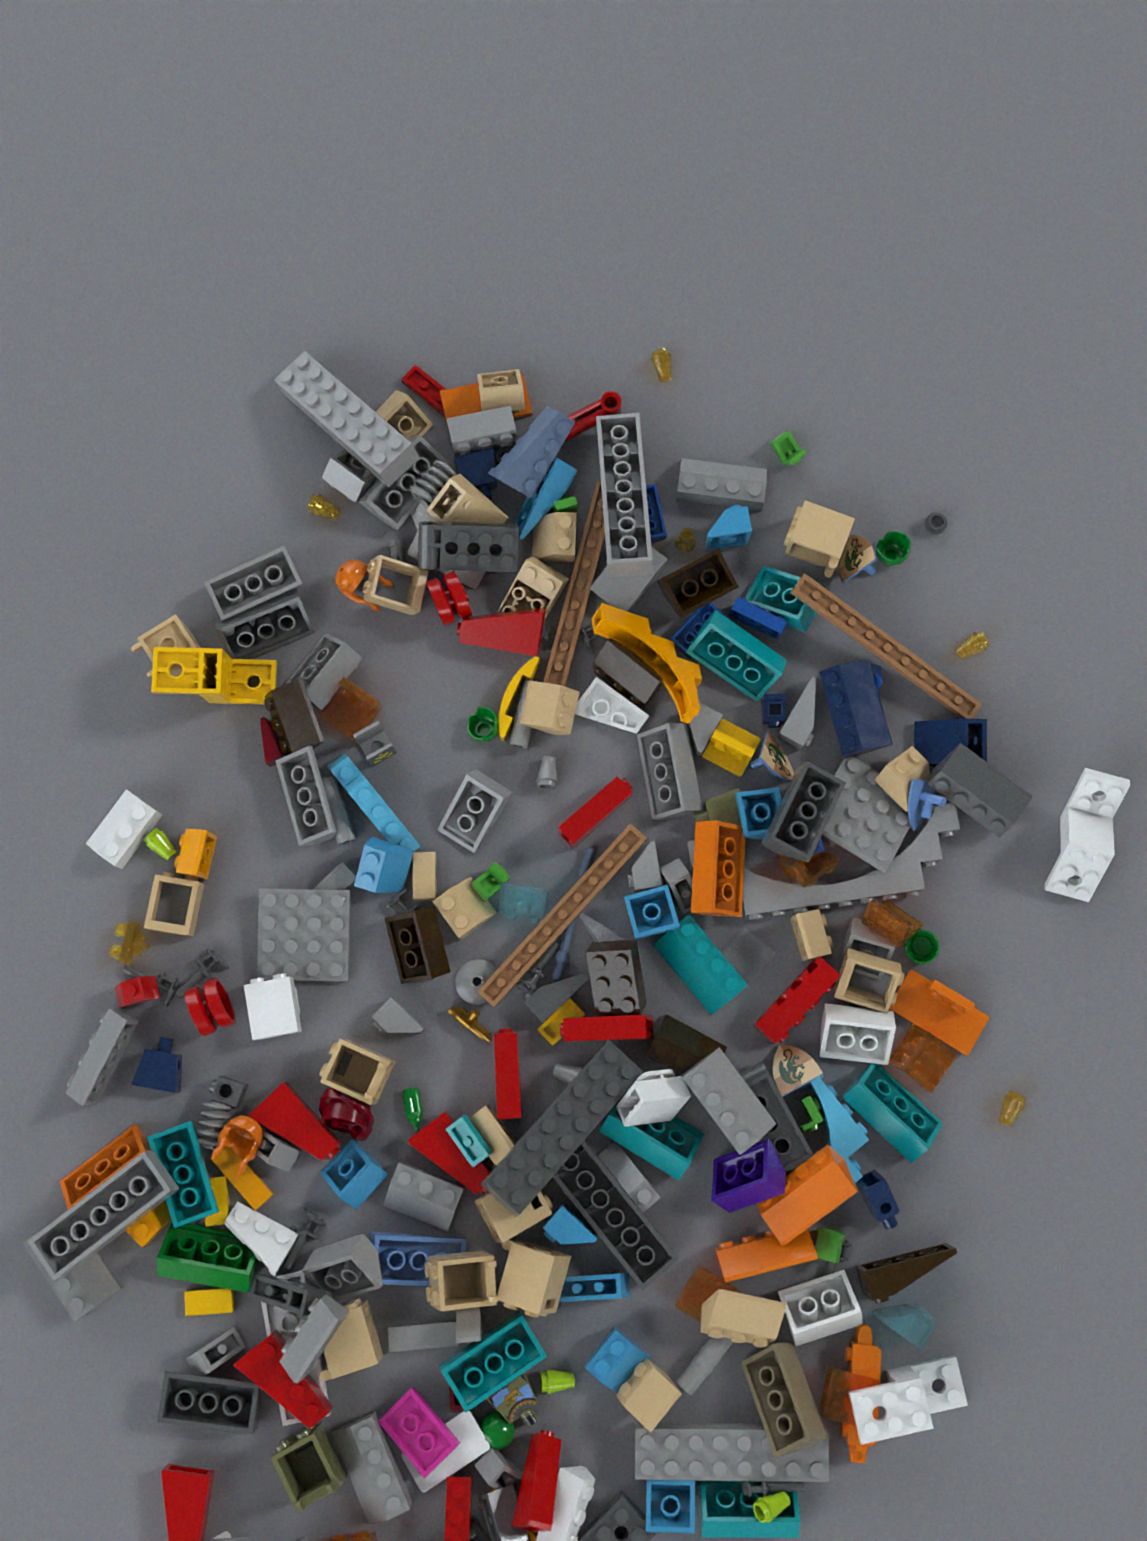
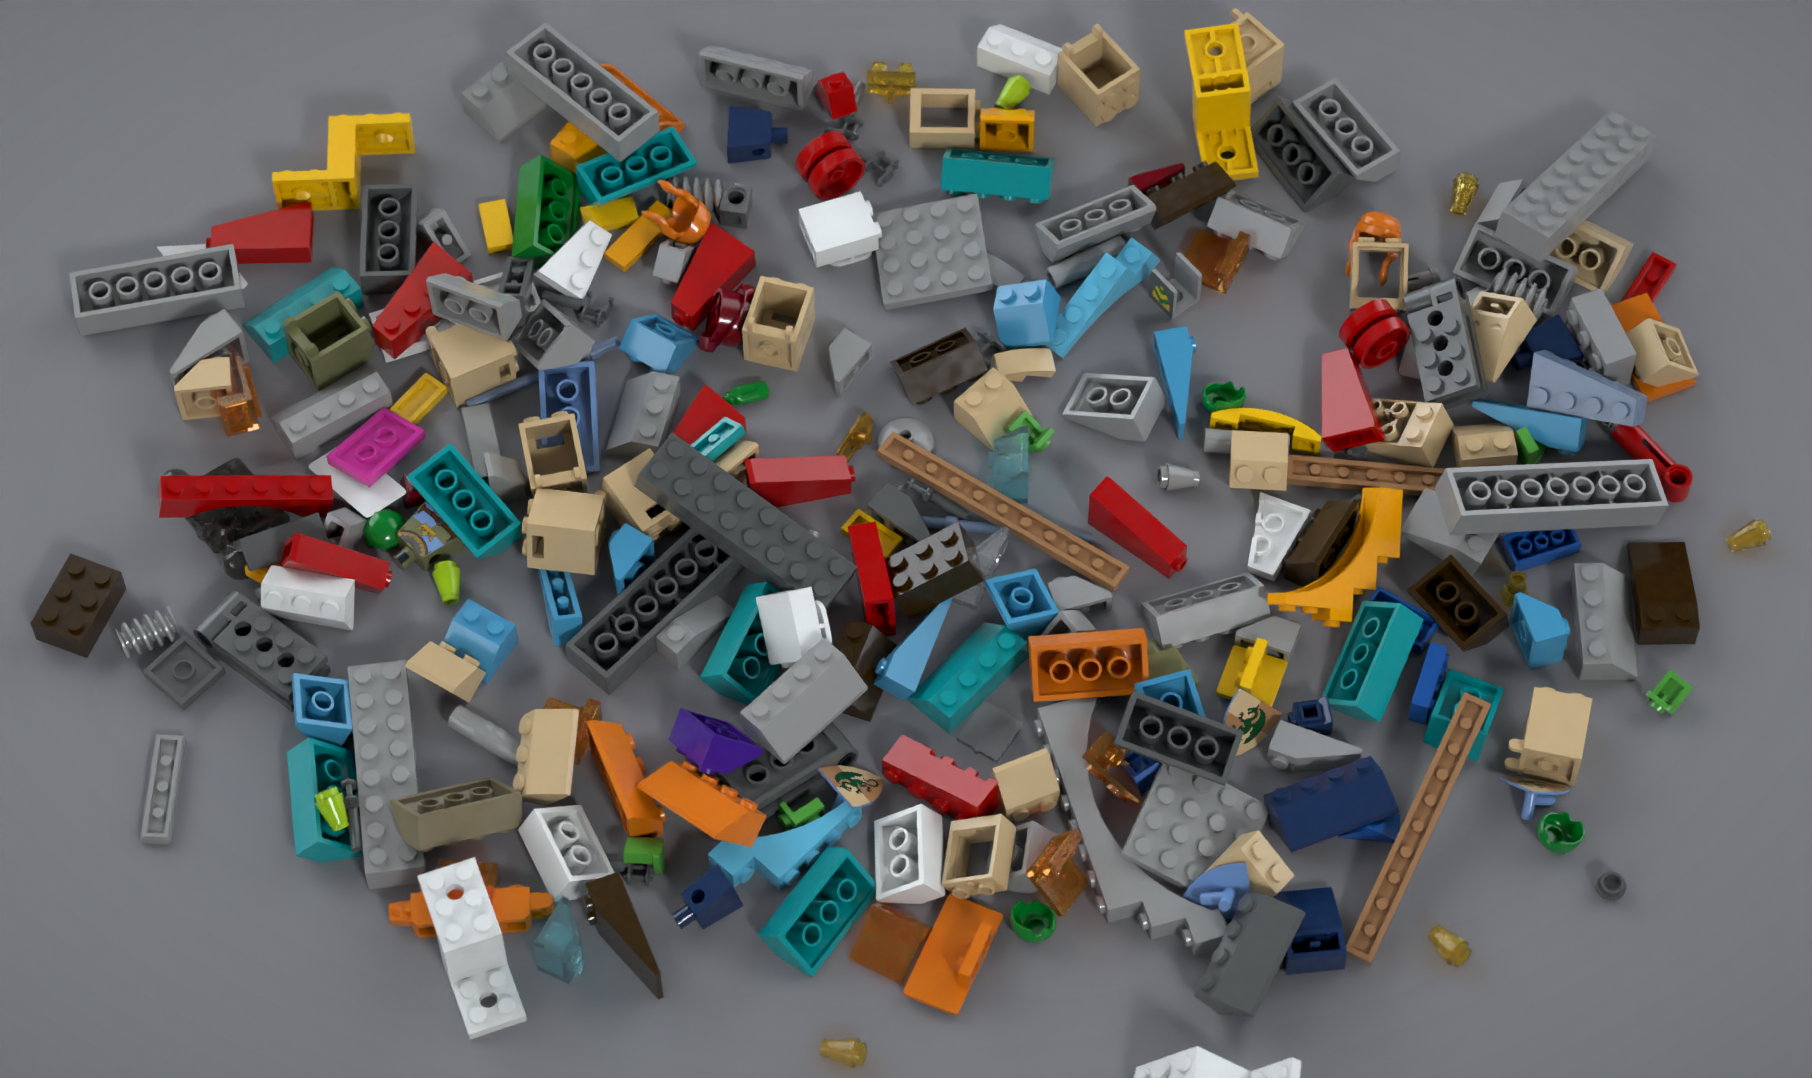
camera: 80 degrees right, 20 degrees down
(124, 1435) = (347, 140): none -> yellow bracket
(157, 772) = (1098, 76): none -> tan container
(237, 868) = (997, 175): none -> teal slope
(263, 1485) = (267, 326): none -> teal slope
(349, 1231) = (533, 377): none -> sand blue bar
(373, 1389) = (420, 399): none -> yellow tile
(444, 756) = (1174, 358): none -> dark azure slope
(680, 1007) = (904, 665): none -> dark azure slope
(699, 435) = (1663, 593): none -> dark brown slope

